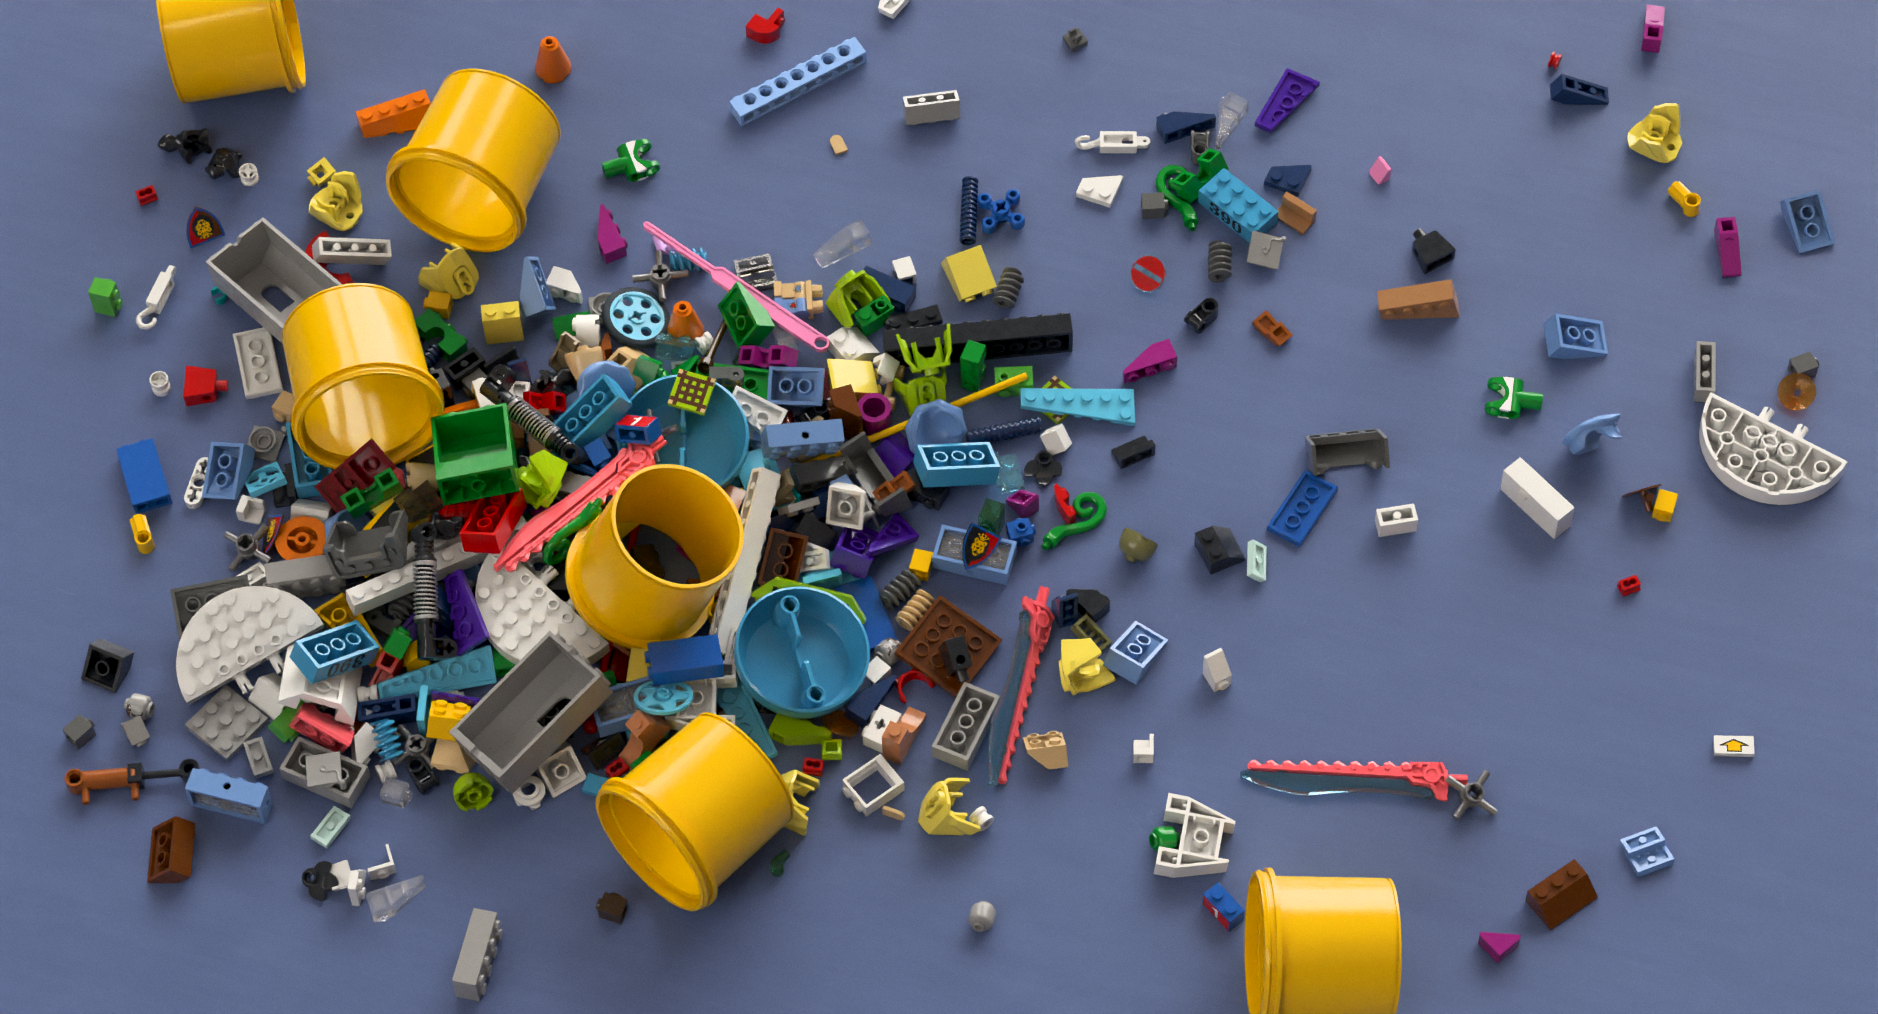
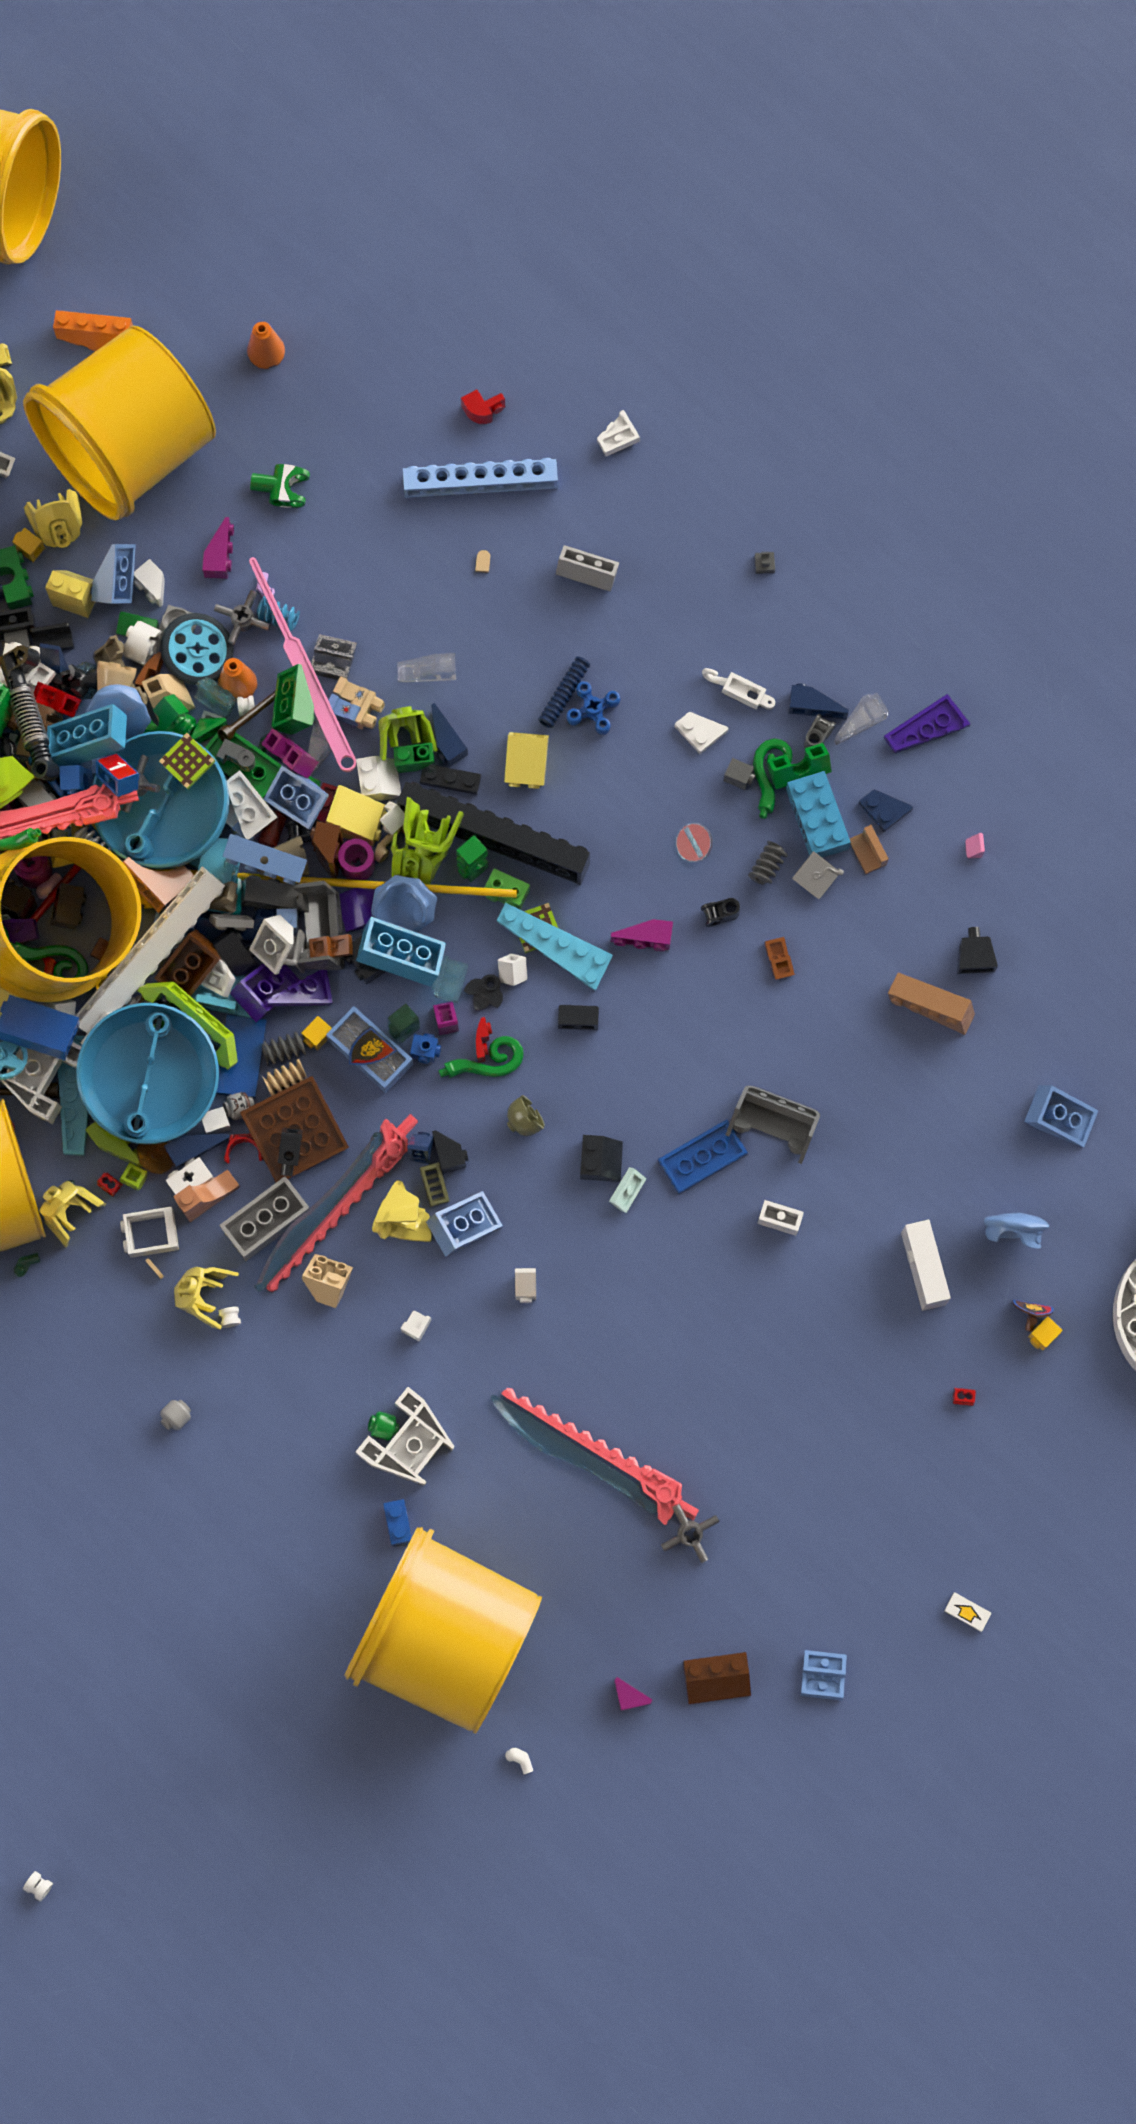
camera: 25 degrees right, 15 degrees up
(904, 269) = (469, 724): white panel -> none
(1005, 430) = (469, 936): dark blue piece -> none
(1008, 288) = (554, 791): dark grey piece -> none
(1513, 398) = (966, 1148): green connector -> none

